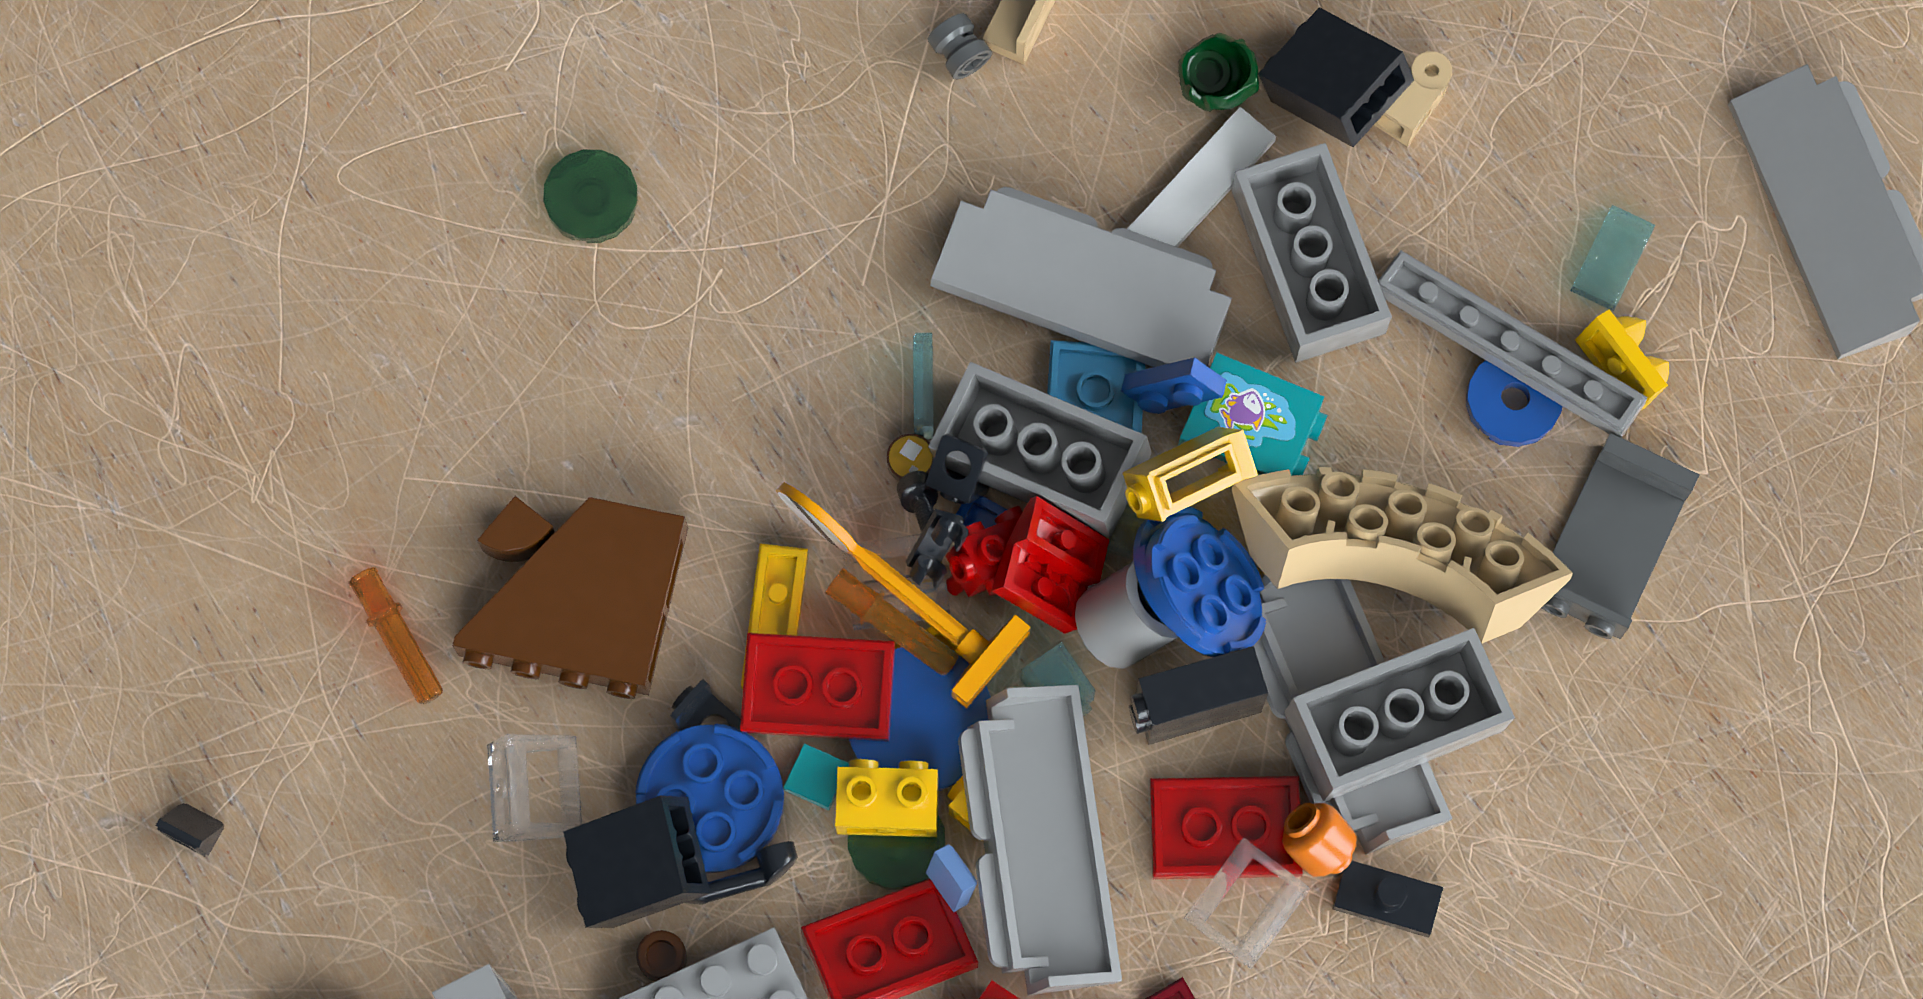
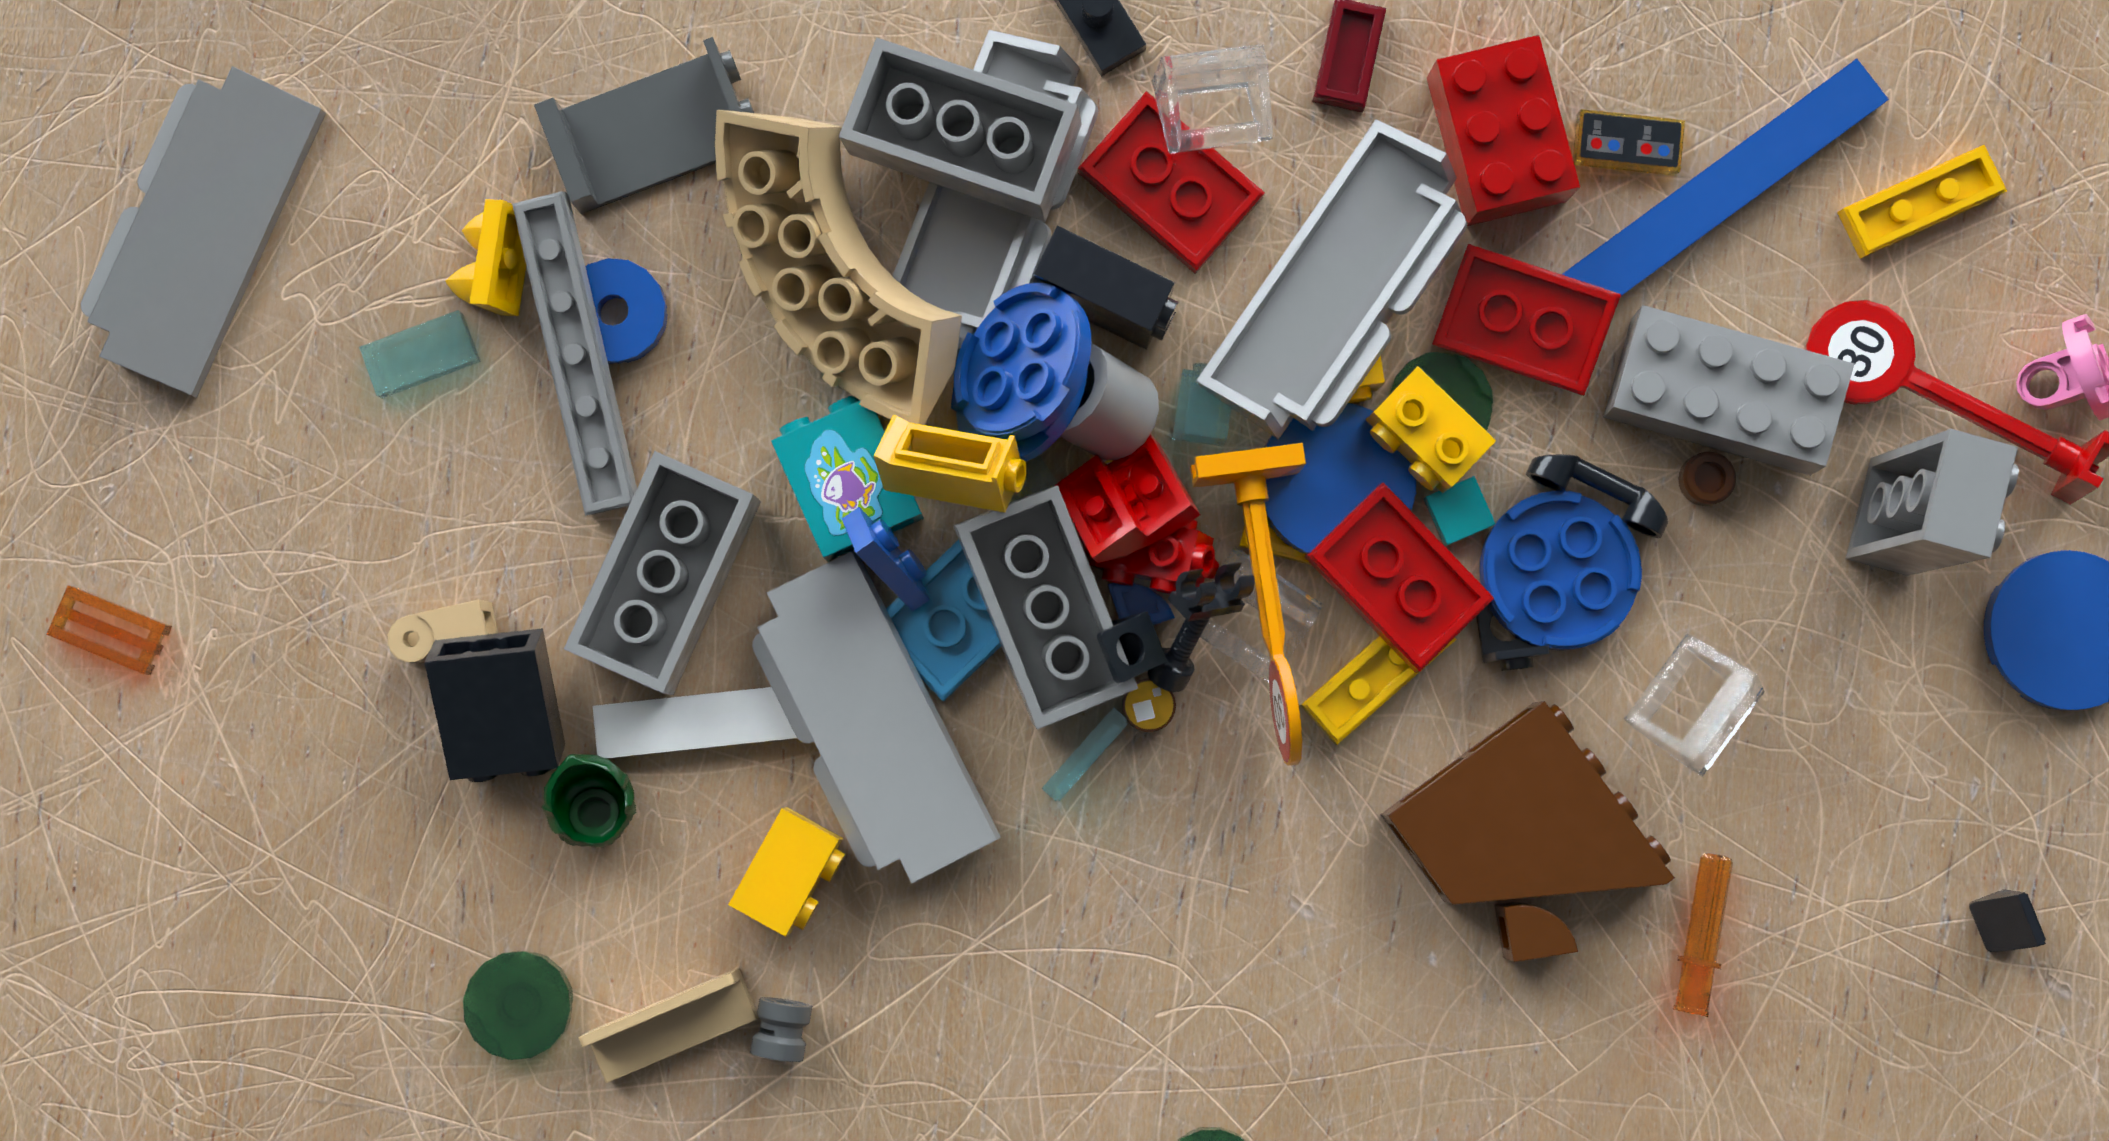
camera: 140 degrees left, 10 degrees up
(636, 862) = (1676, 559): black brick -> none
(874, 609) = (1299, 571): clear orange axle -> none
(951, 877) = (1432, 323): medium blue tile -> none
(1048, 140) = (787, 872): none -> yellow brick
(1319, 839) = (1112, 98): orange head -> none

